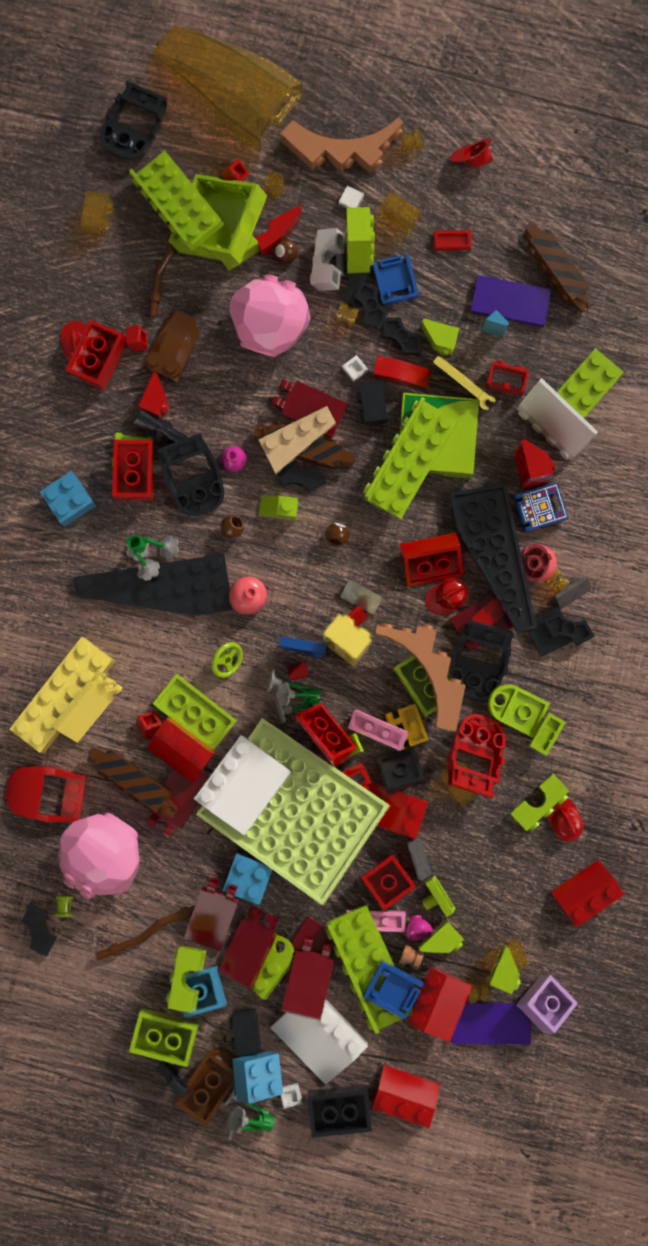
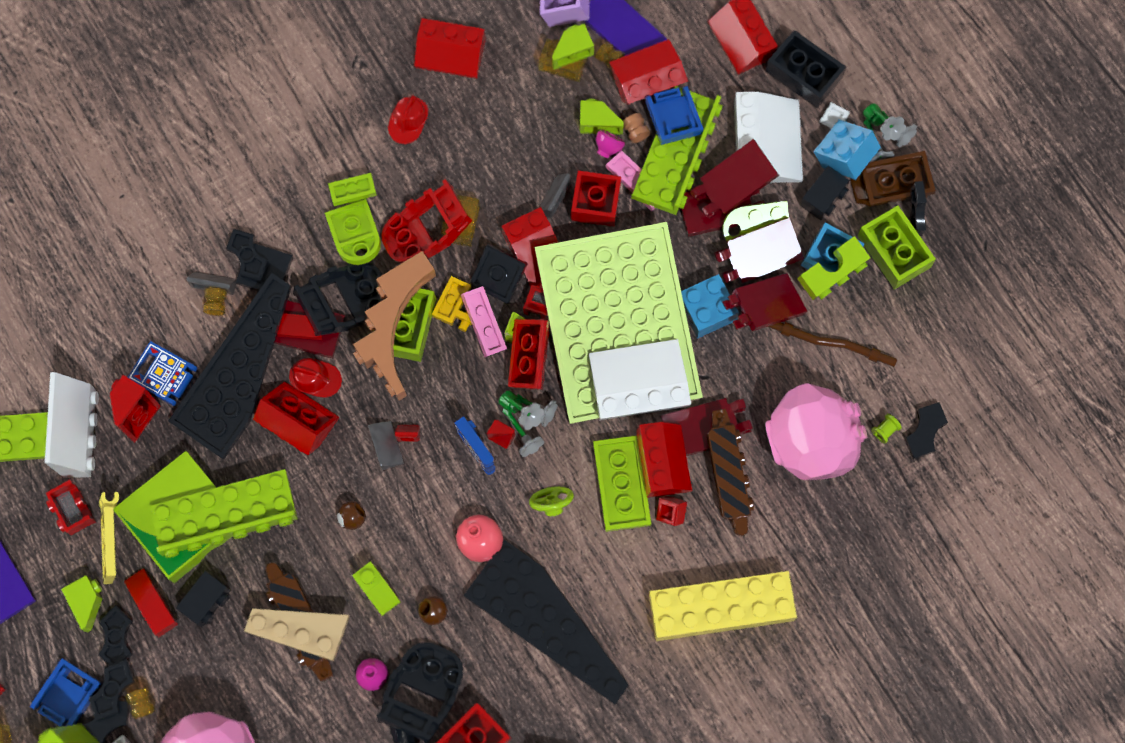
camera: 135 degrees left, 10 degrees down
(26, 789) = (831, 555): red slope -> none
(86, 707) = (710, 572): light yellow tile -> none
(139, 547) = (532, 671): light grey plant -> none
(305, 400) = (257, 658): dark red tile -> none
(307, 477) = (324, 590): black tile -> none
(347, 639) = (433, 400): light yellow brick -> none
(354, 368) = (185, 649): white tile -> none
(438, 897) = (568, 152): lime tile -> none
(495, 325) = (28, 561): dark azure slope -> none
(538, 562) = (212, 326): coral cylinder -> none
(553, 792) = (396, 143): lime arch -> none

